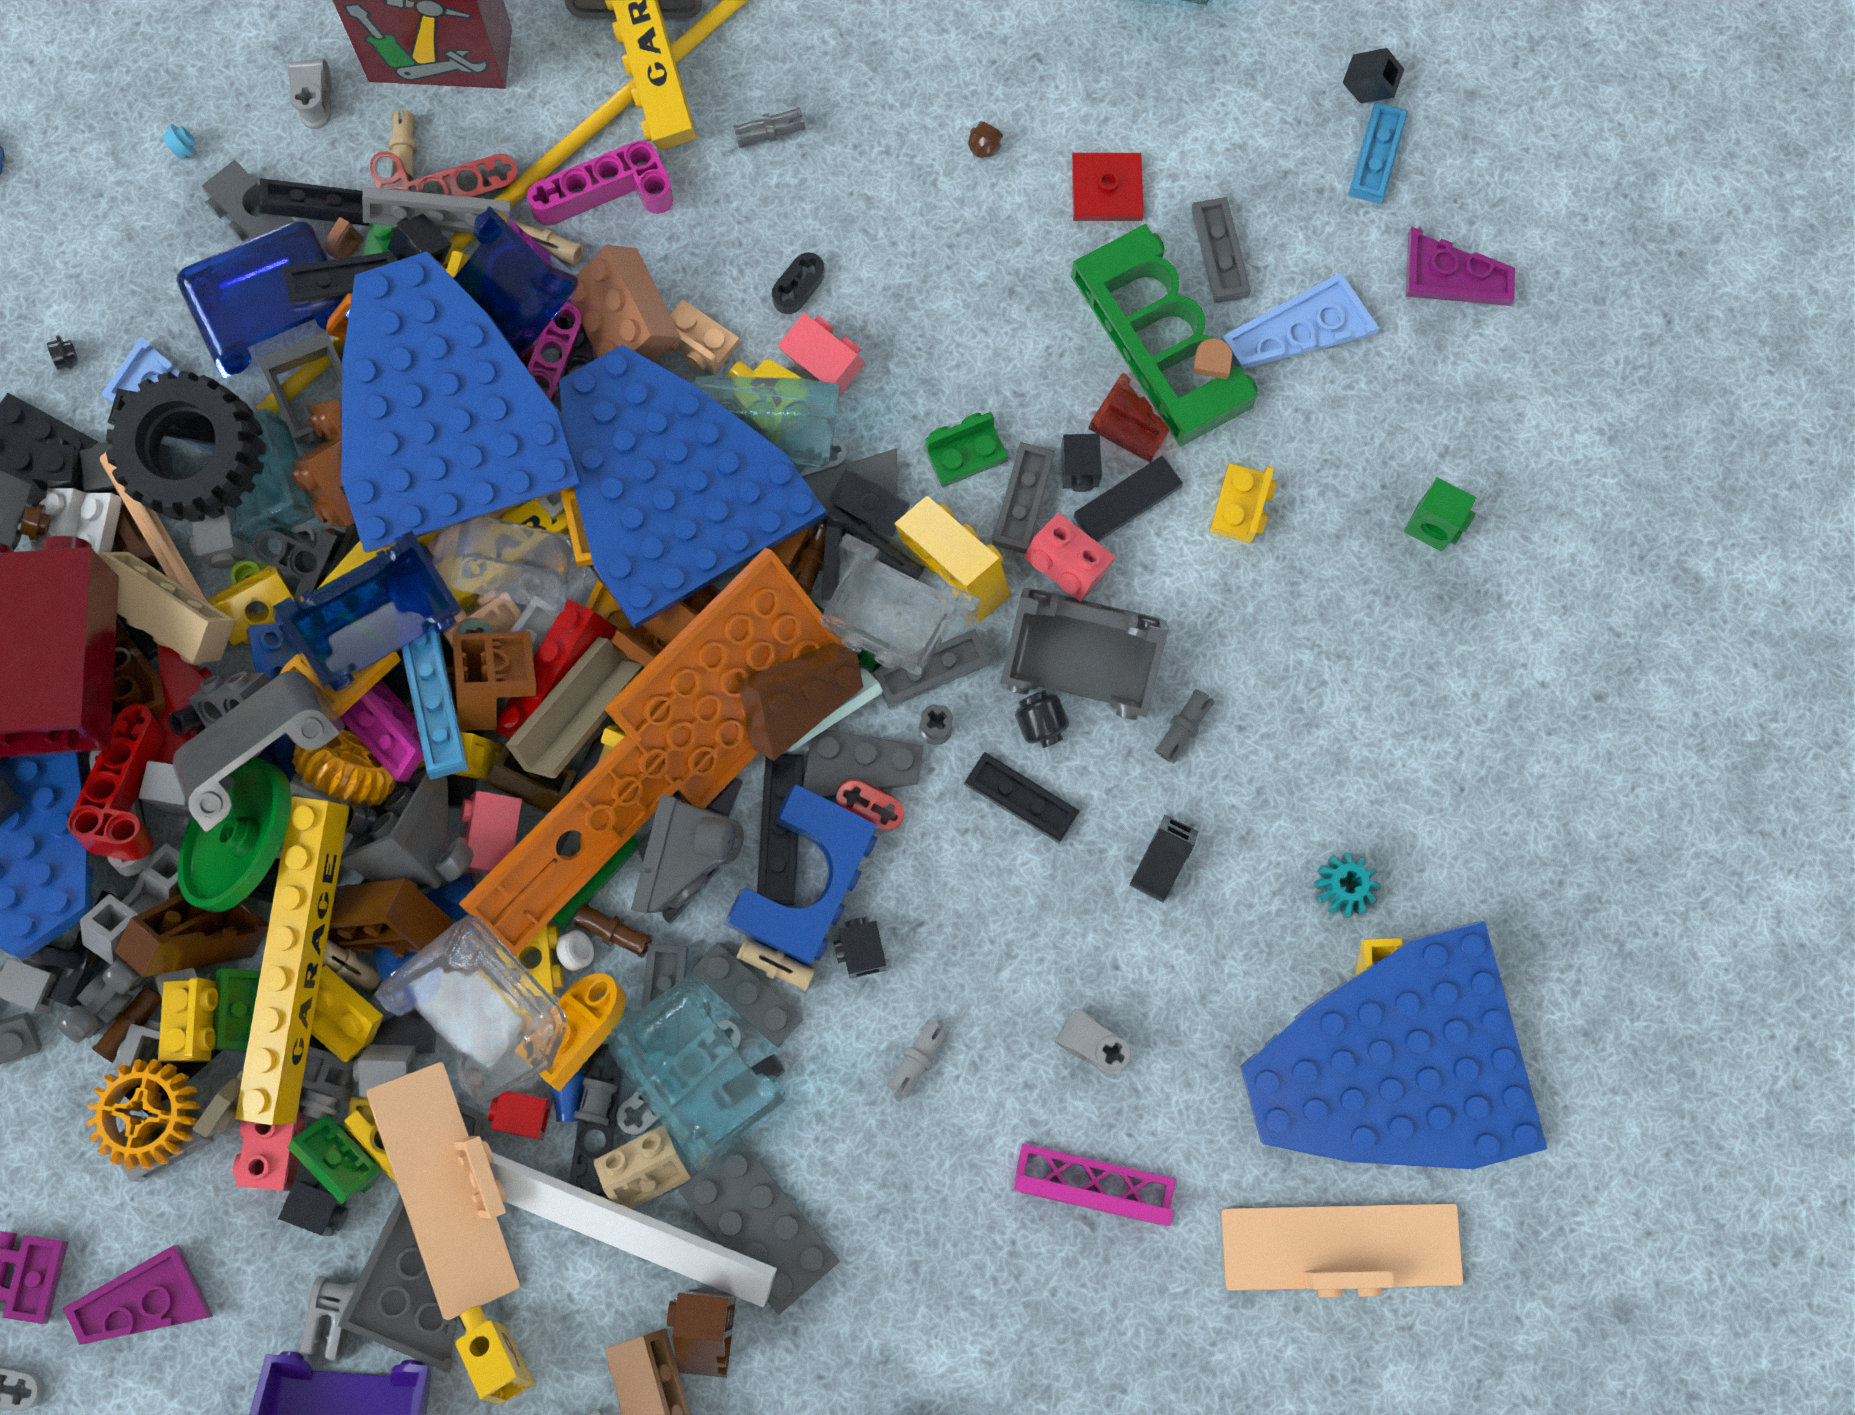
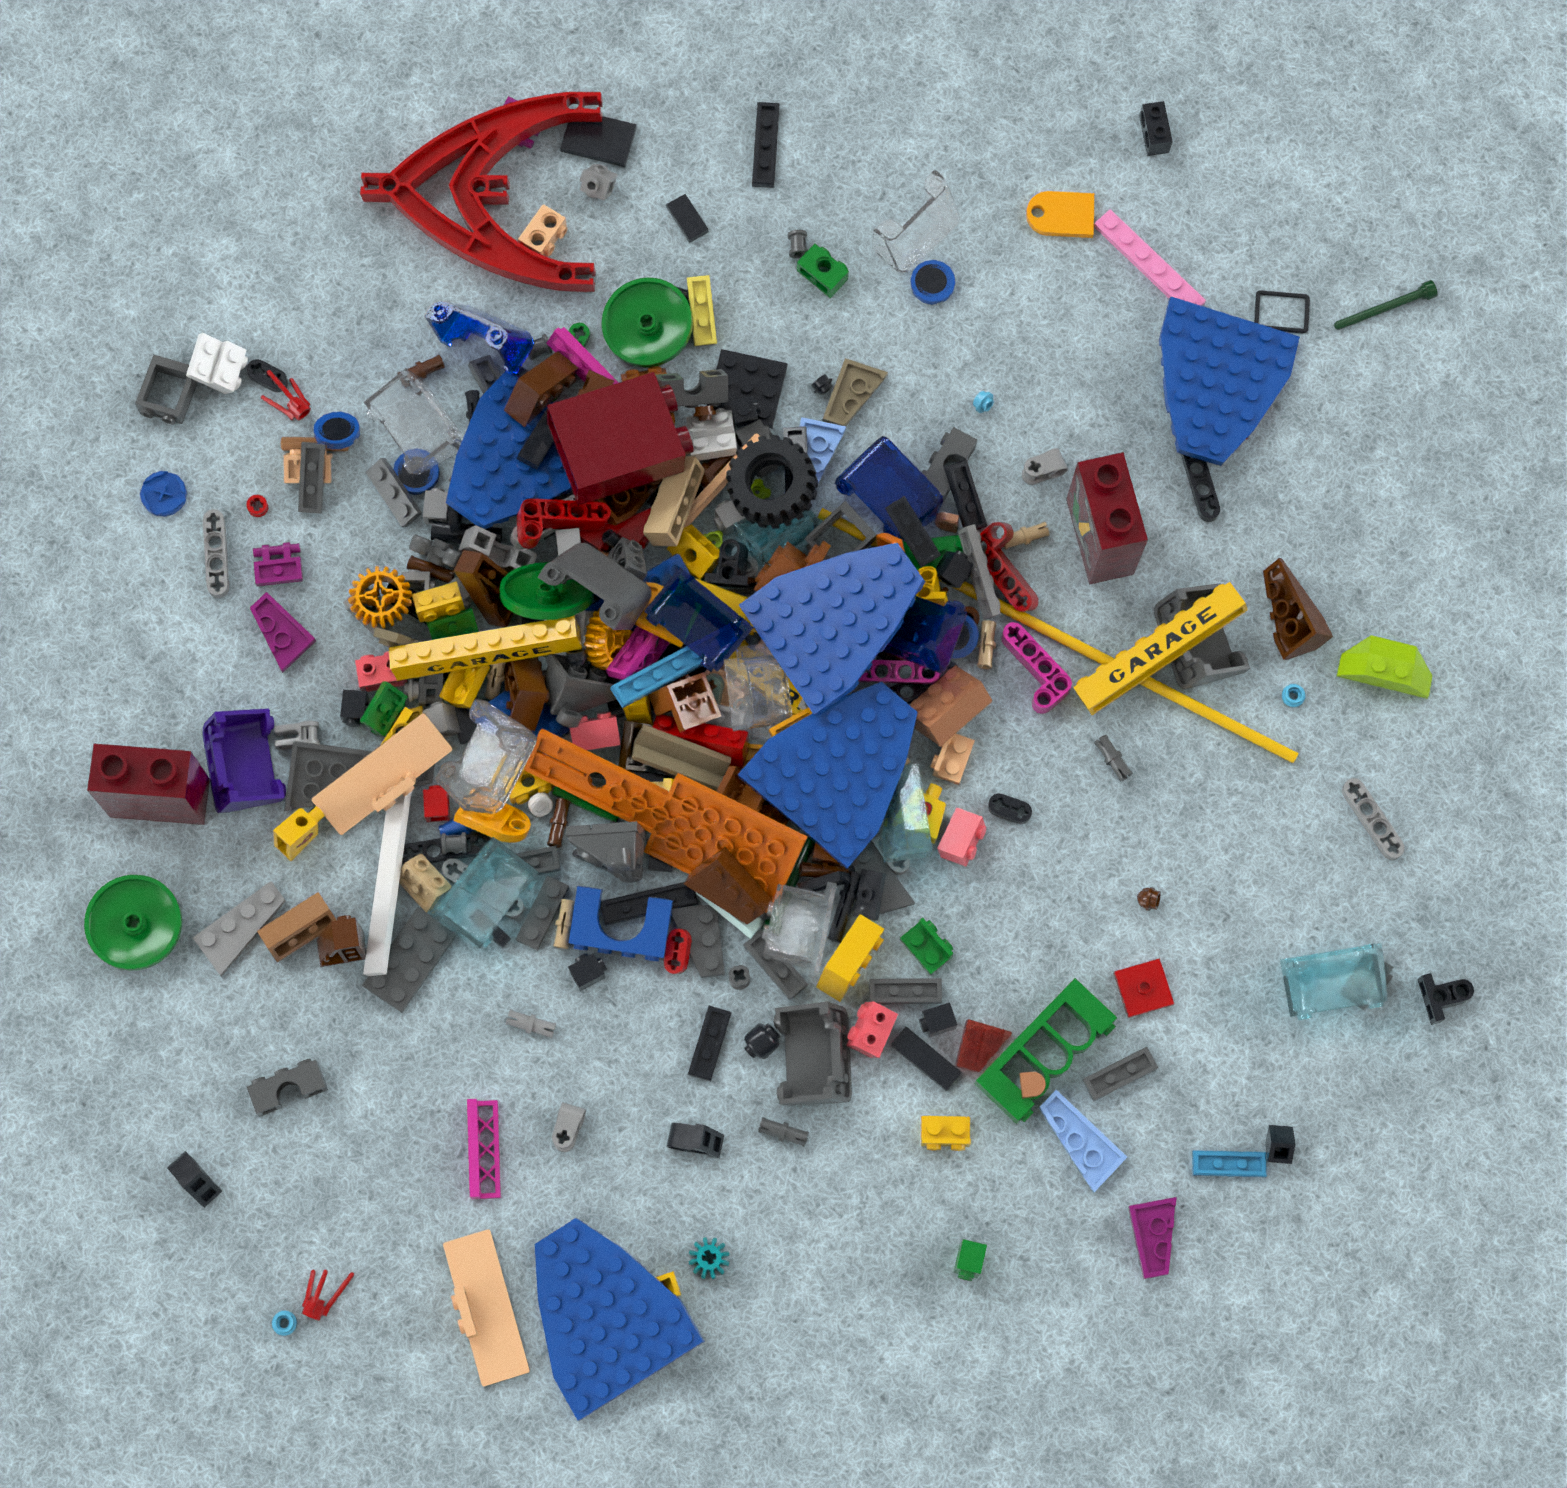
camera: 75 degrees right, 0 degrees up
(88, 314) = (851, 391): none -> dark tan wing

